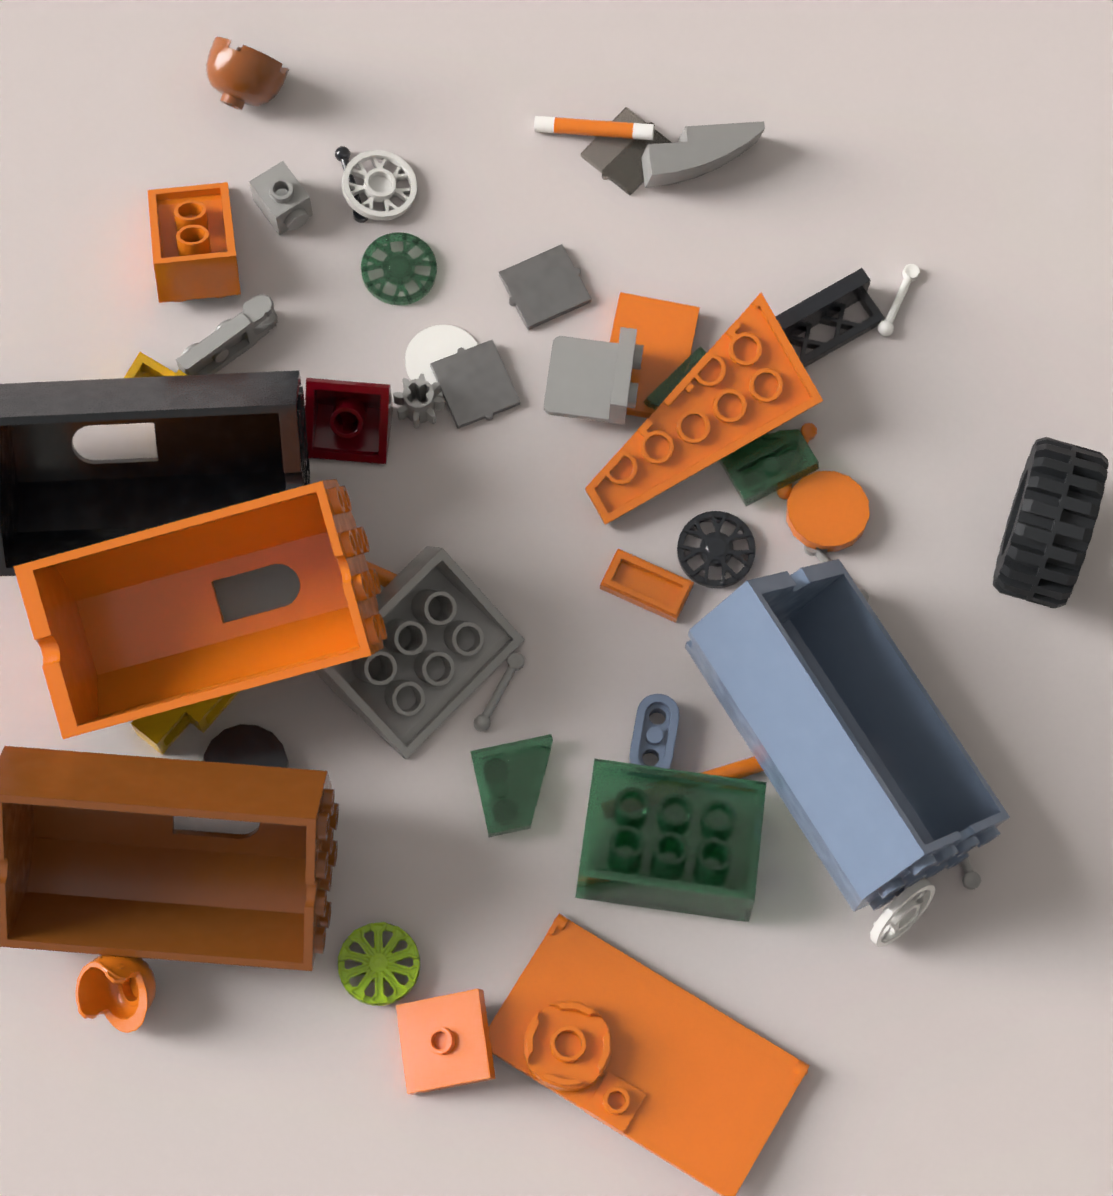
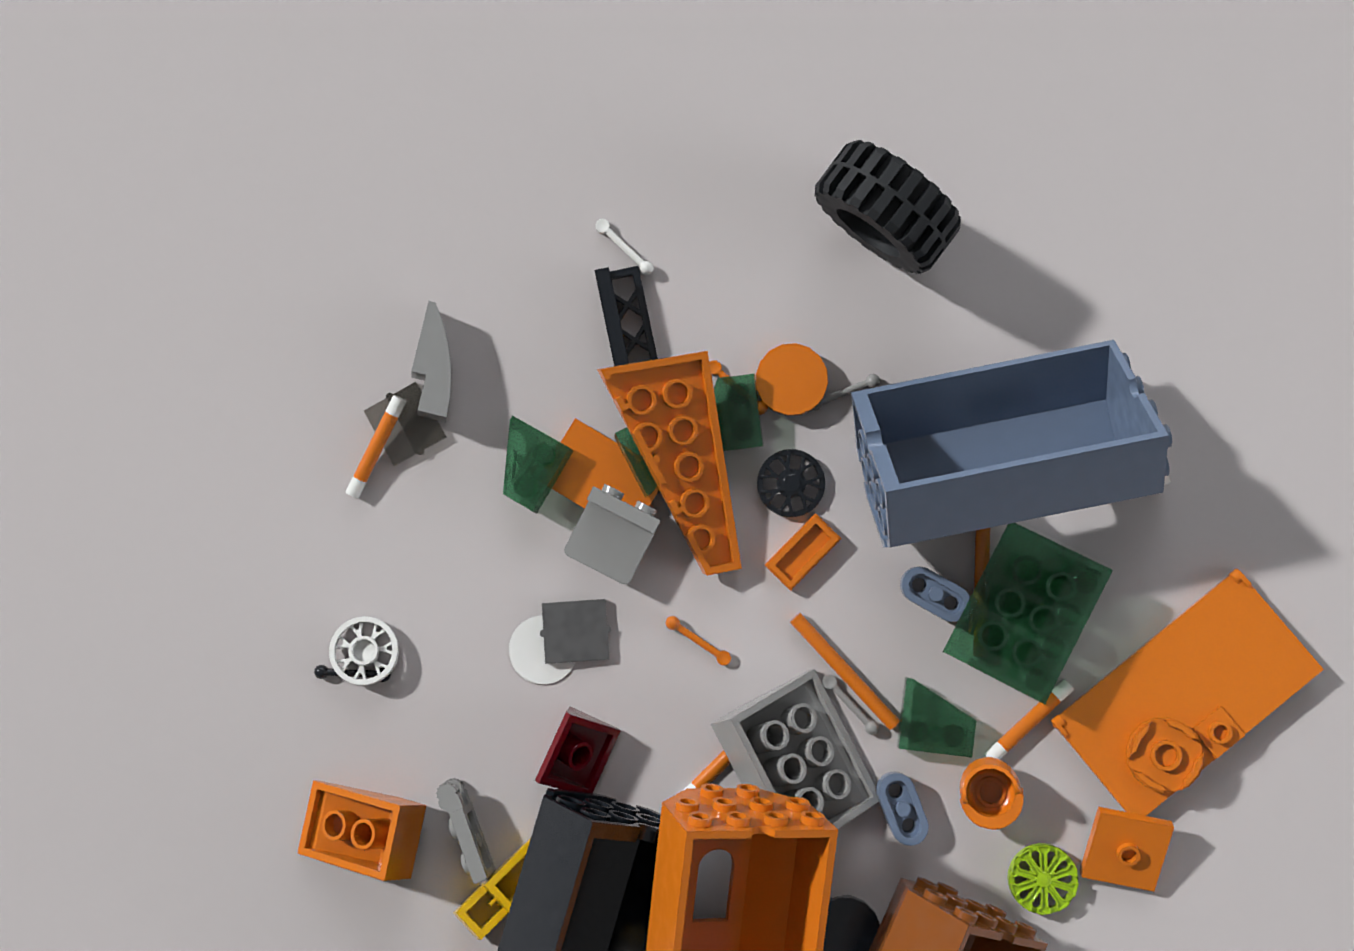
camera: 60 degrees left, 15 degrees up
(243, 74) = (218, 737): dark orange cylinder -> none
(281, 198) = (349, 741): light grey brick -> none
(398, 268) = (446, 659): clear green wheel -> none
(404, 780) = (901, 807): none -> sand blue plate
(422, 391) = (574, 695): light grey gear -> none
(456, 861) = (991, 793): none -> orange helmet
(501, 541) = (722, 656): none -> orange hinge
(533, 672) = (843, 669): none -> orange bar
(545, 287) = (506, 541): flat silver piece -> none
(549, 890) = (1029, 721): none -> orange bar
(634, 280) = (532, 464): none -> clear green wing

